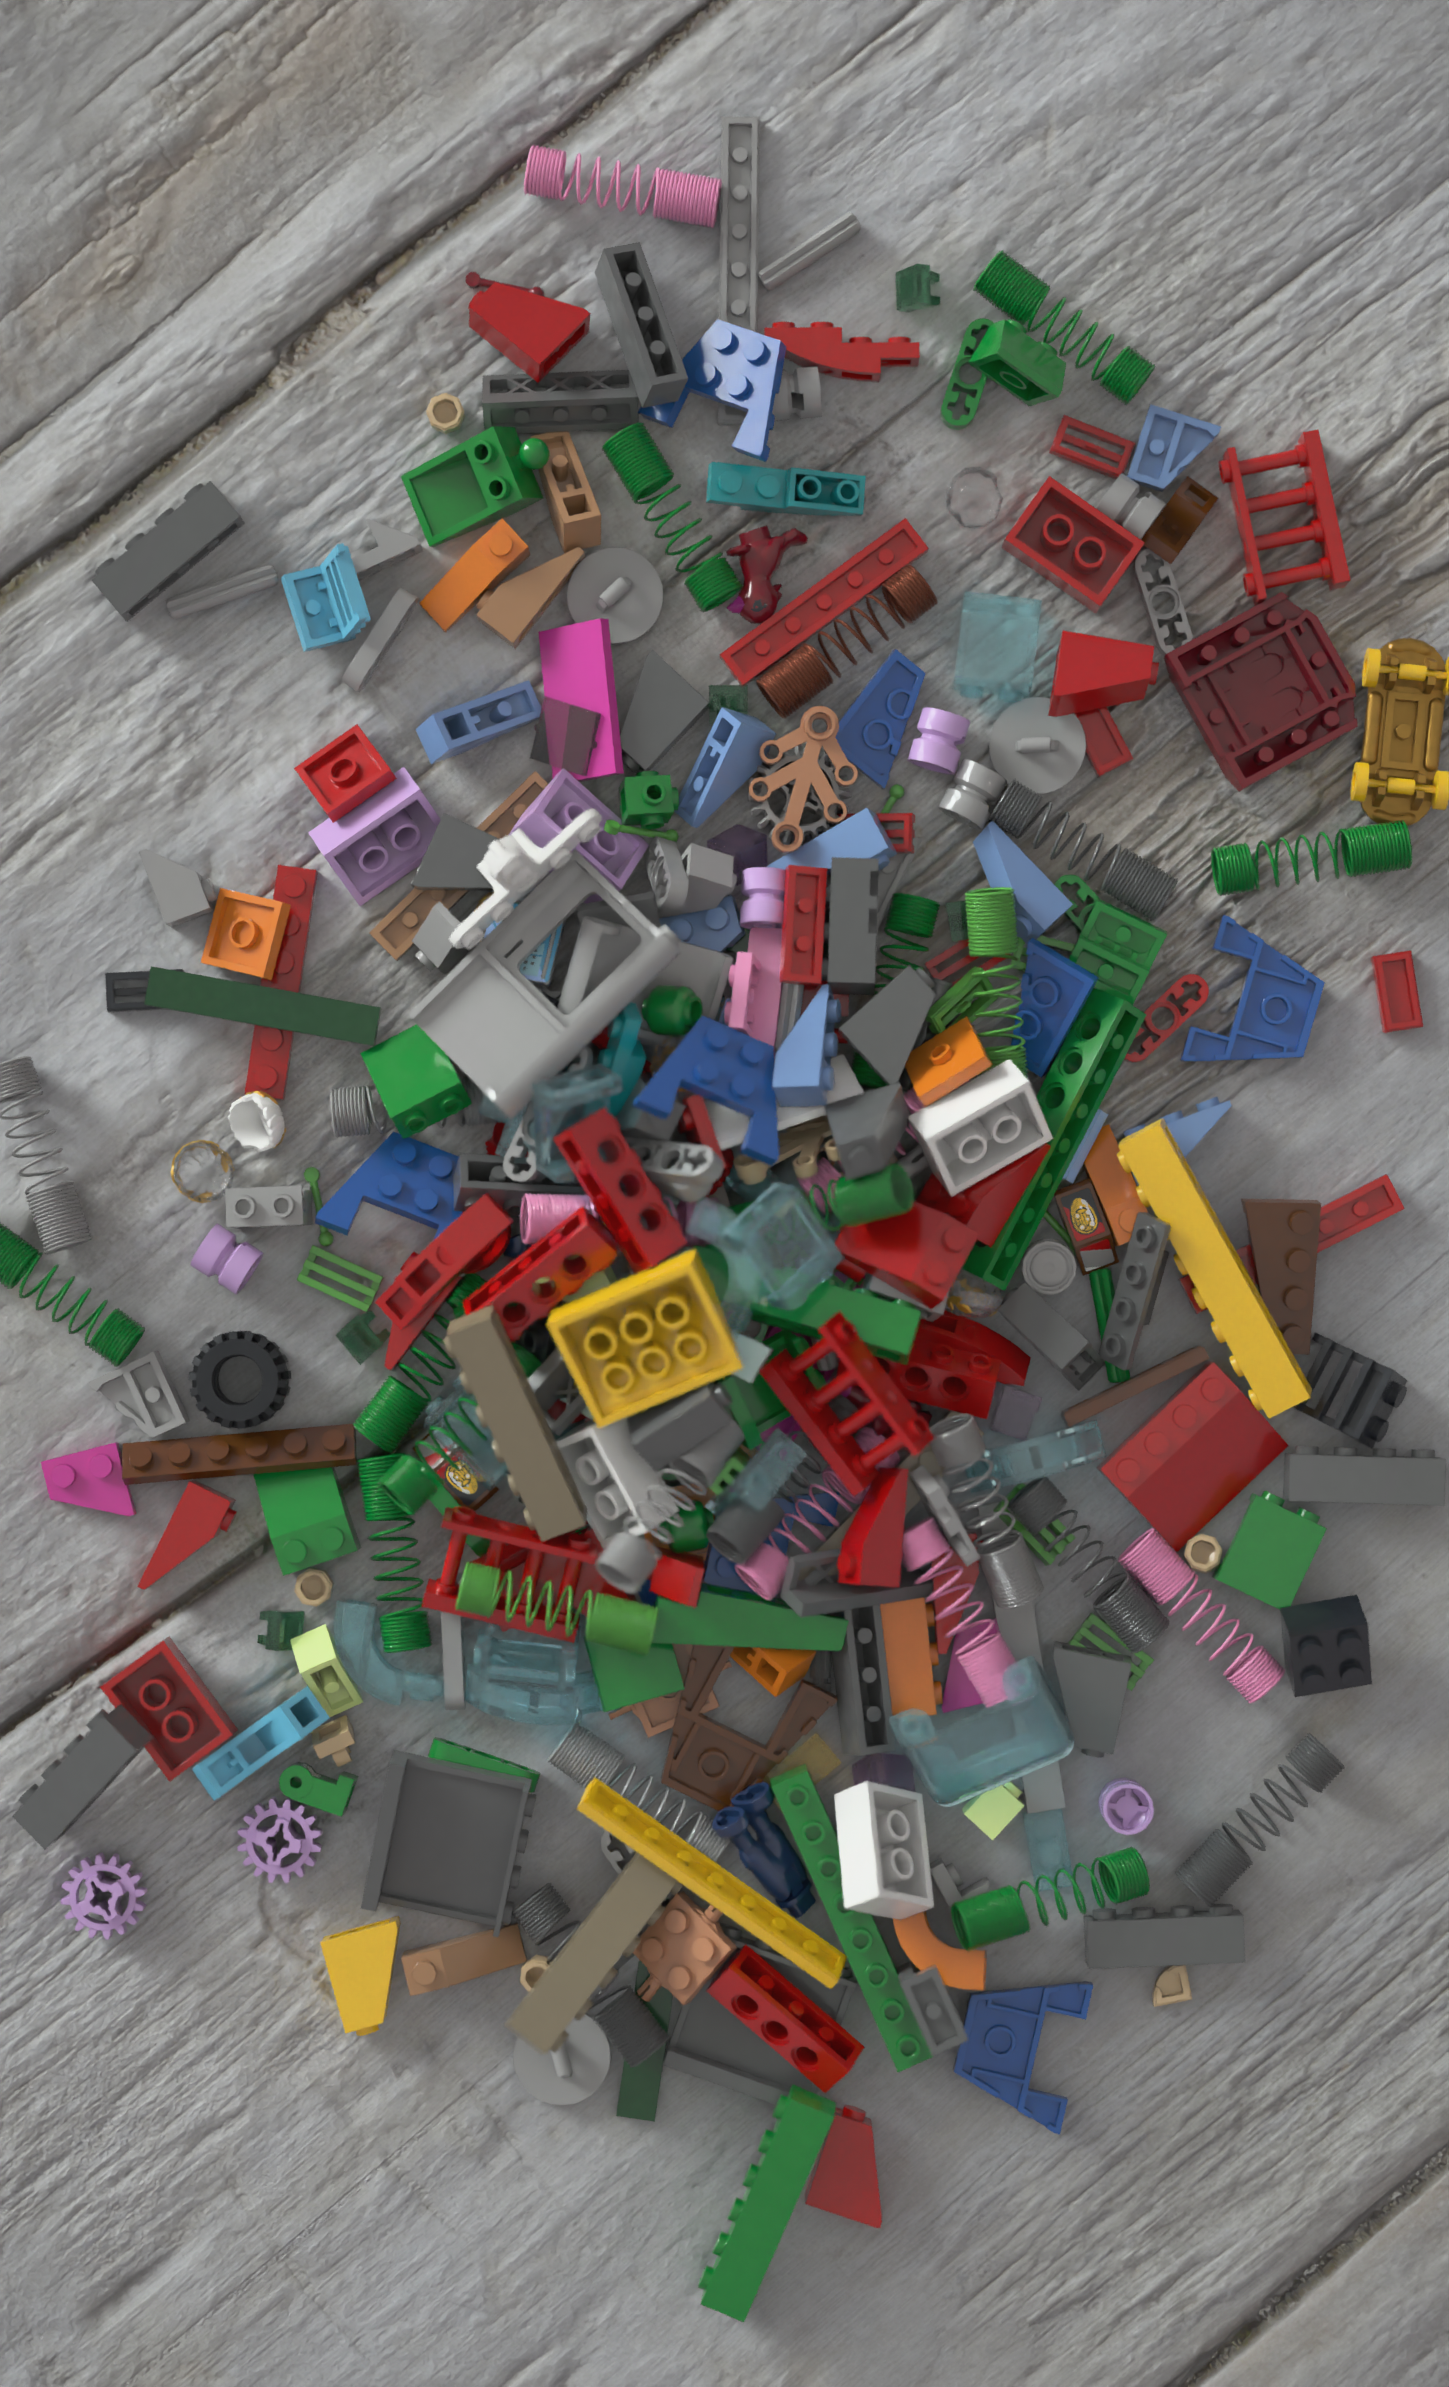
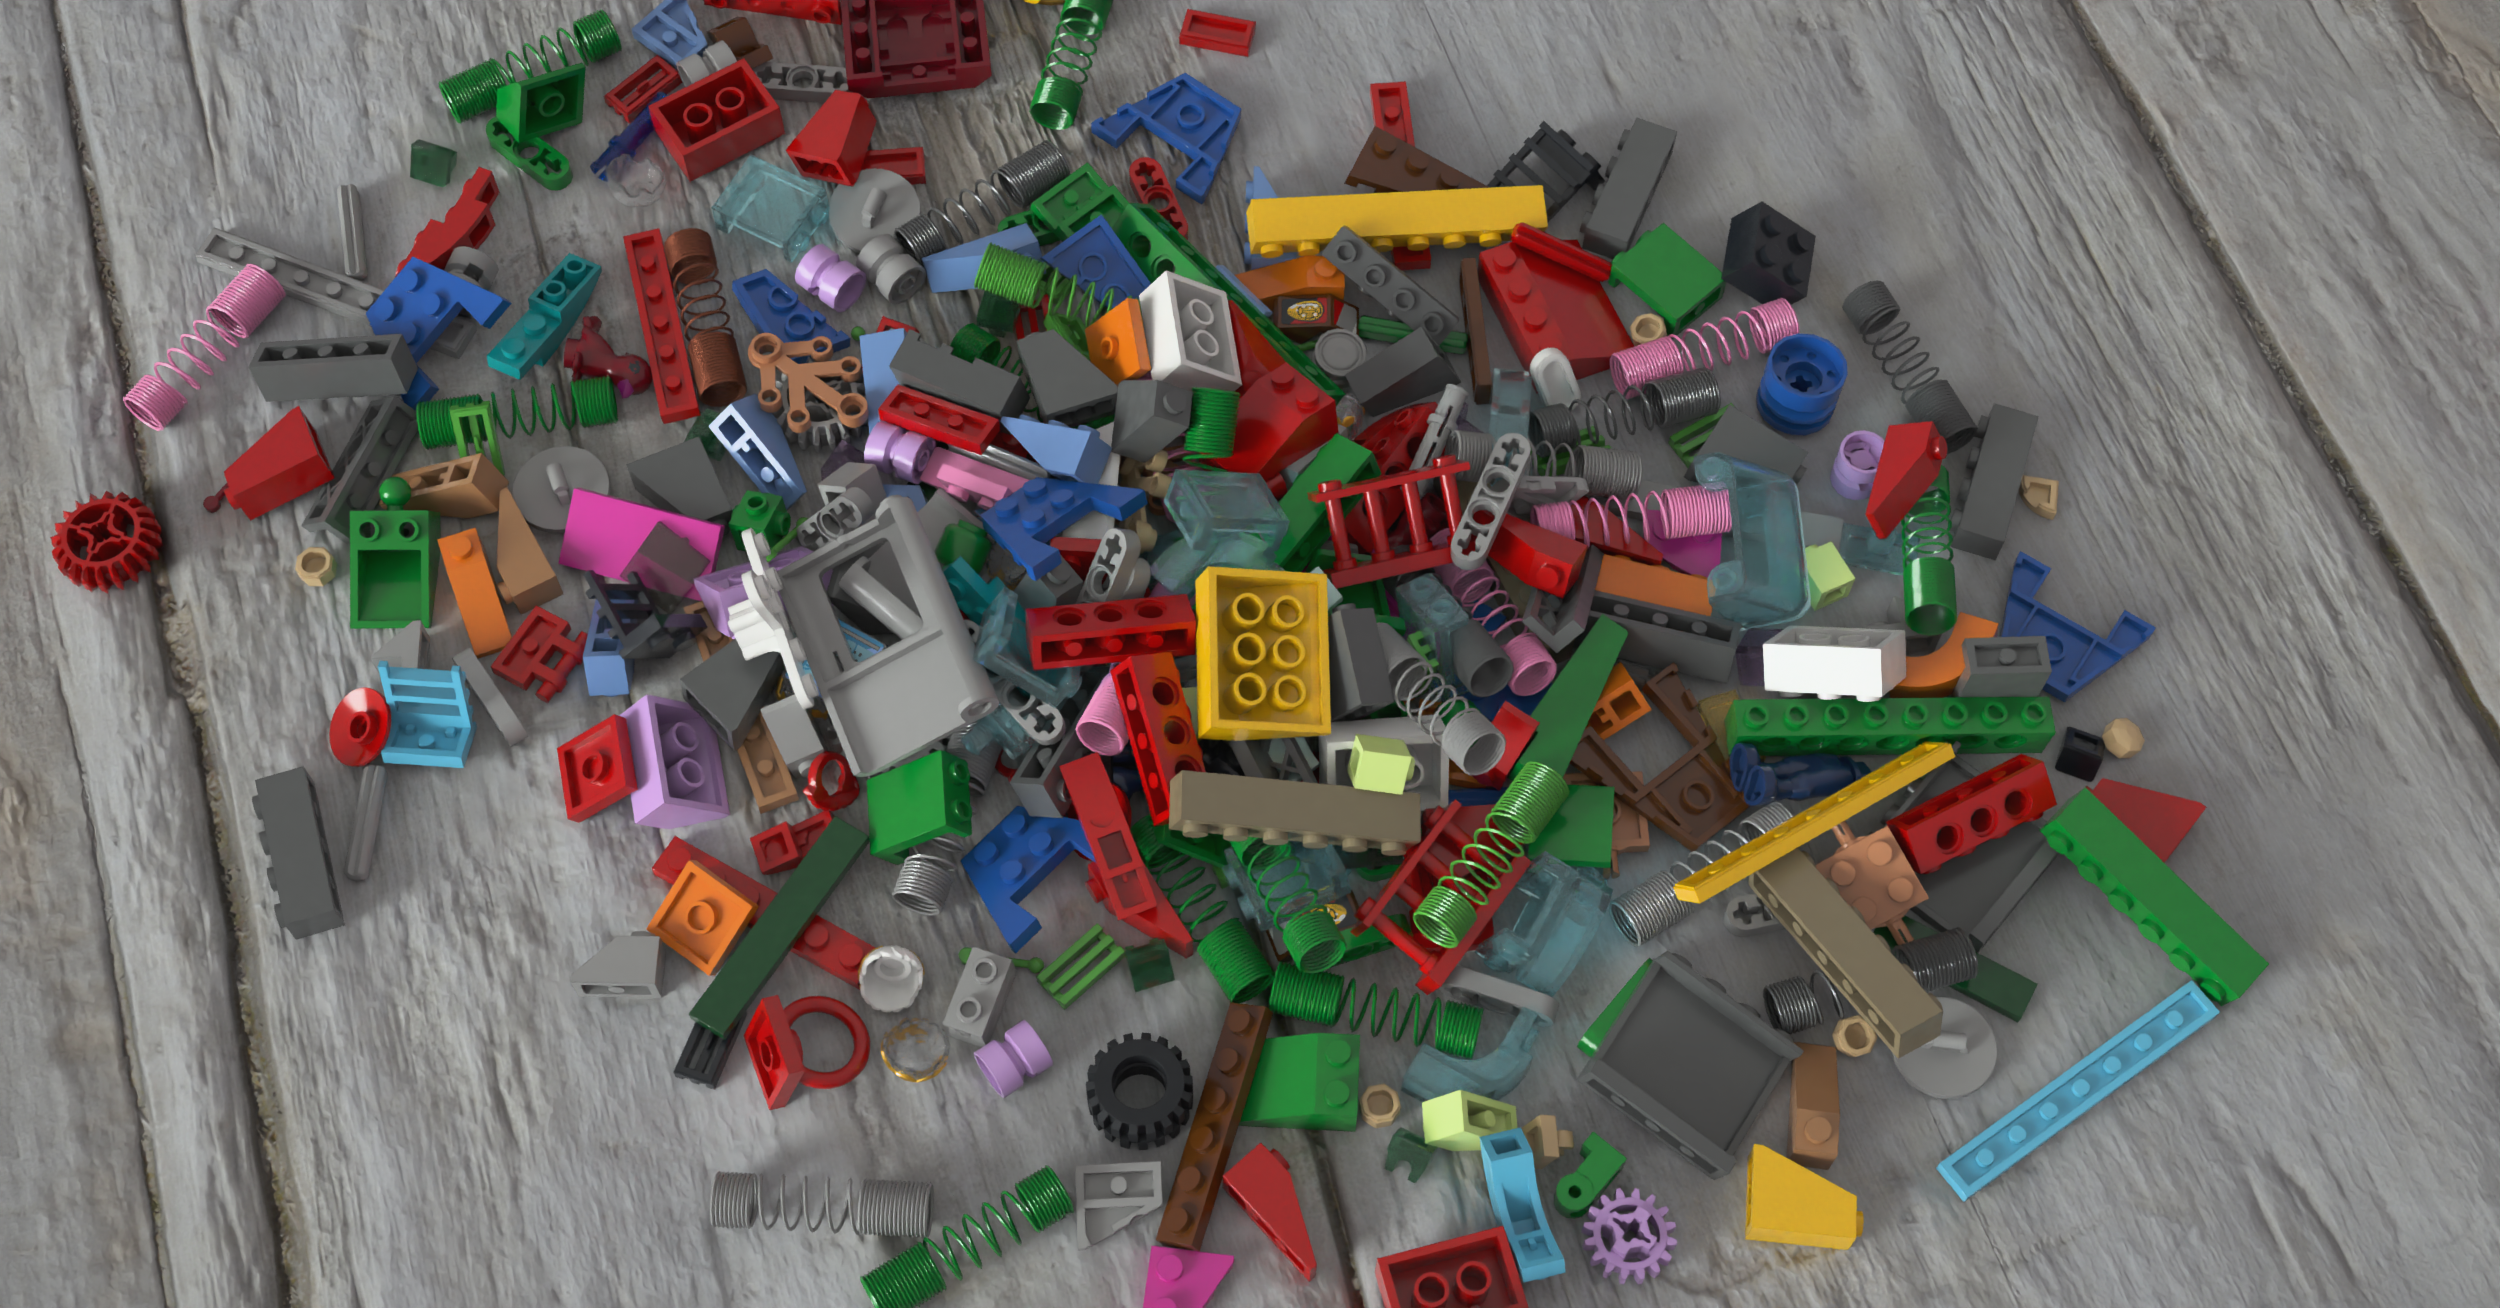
camera: 70 degrees left, 25 degrees down
(150, 1059) = (779, 1052): none -> red tile
(302, 541) = (360, 727): none -> red dish
(352, 976) = (787, 845): none -> red slope
(376, 211) = (111, 554): none -> red gear
(397, 980) = (847, 783): none -> red piece
(441, 652) = (533, 647): none -> red plate
(485, 762) = (654, 638): none -> black plate
(567, 2185) = (2077, 1091): none -> medium azure plate
(590, 1481) = (1380, 764): none -> yellowish green brick
(637, 486) = (472, 411): none -> bright green tile
(901, 1478) = (1486, 499): none -> light grey beam
(906, 2098) = (2080, 754): none -> black slope
(933, 2133) = (2123, 738): none -> tan tile
(976, 1403) = (1451, 401): none -> light grey pin
(1028, 467) = (628, 140): none -> clear blue pin
(1097, 1486) = (1554, 378): none -> white tile
(1115, 1855) = (1904, 472): none -> red slope
(1211, 1729) = (1801, 384): none -> blue wheel
(1250, 1440) = (1561, 252): none -> red axle

